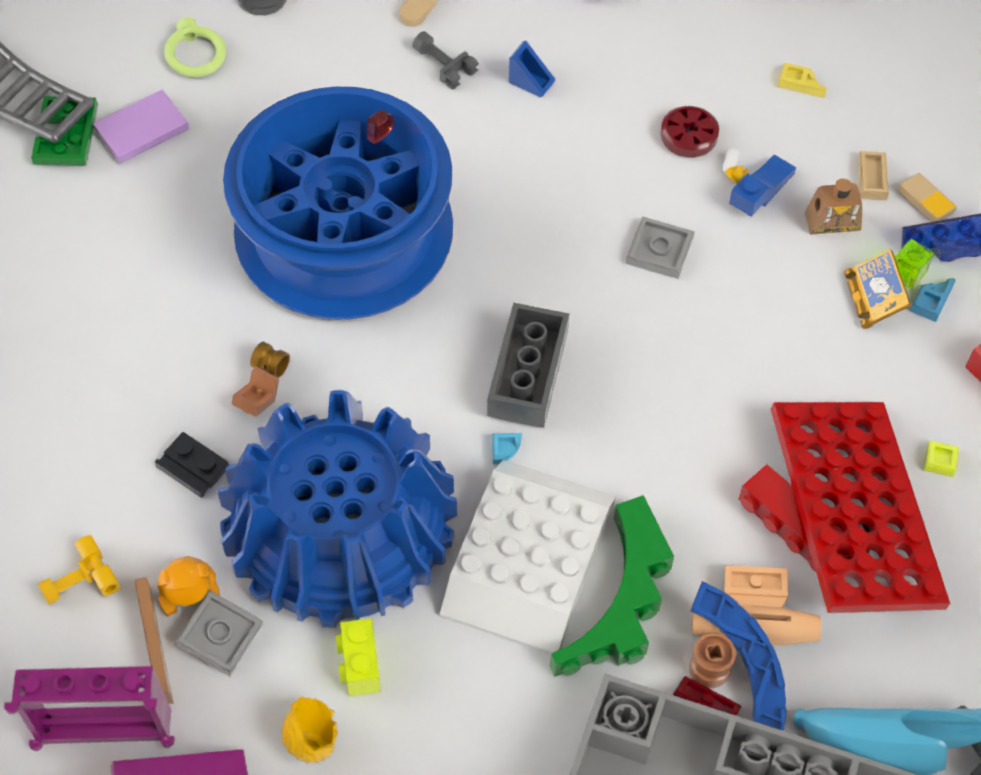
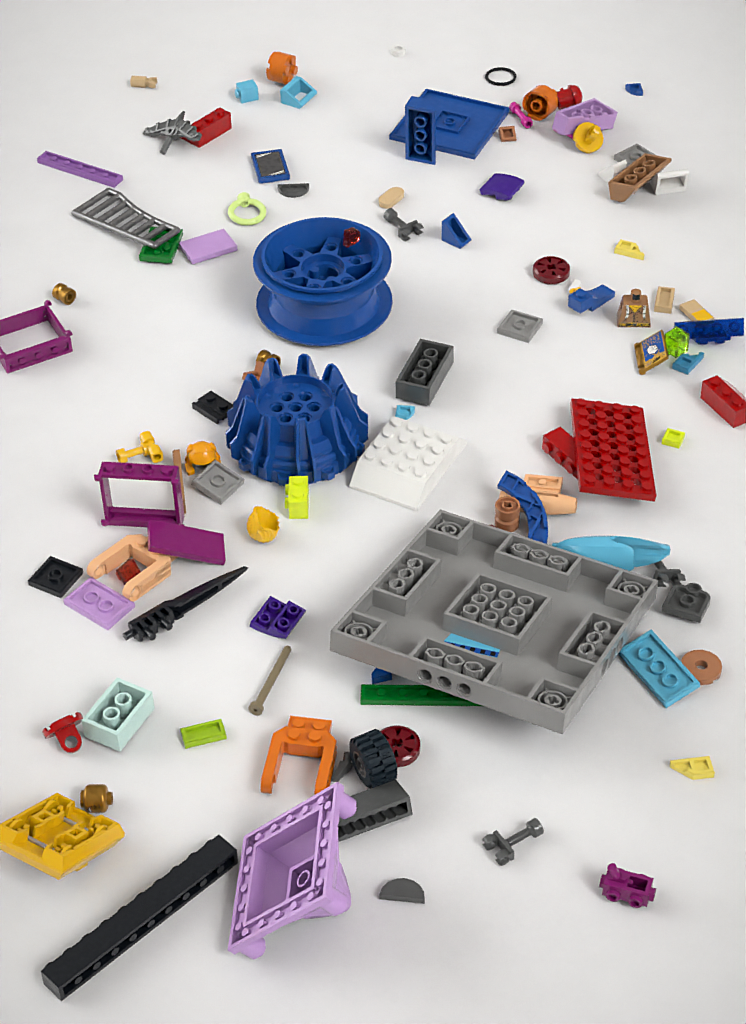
camera: 10 degrees right, 15 degrees down
(619, 629) = (467, 485): green arch -> none

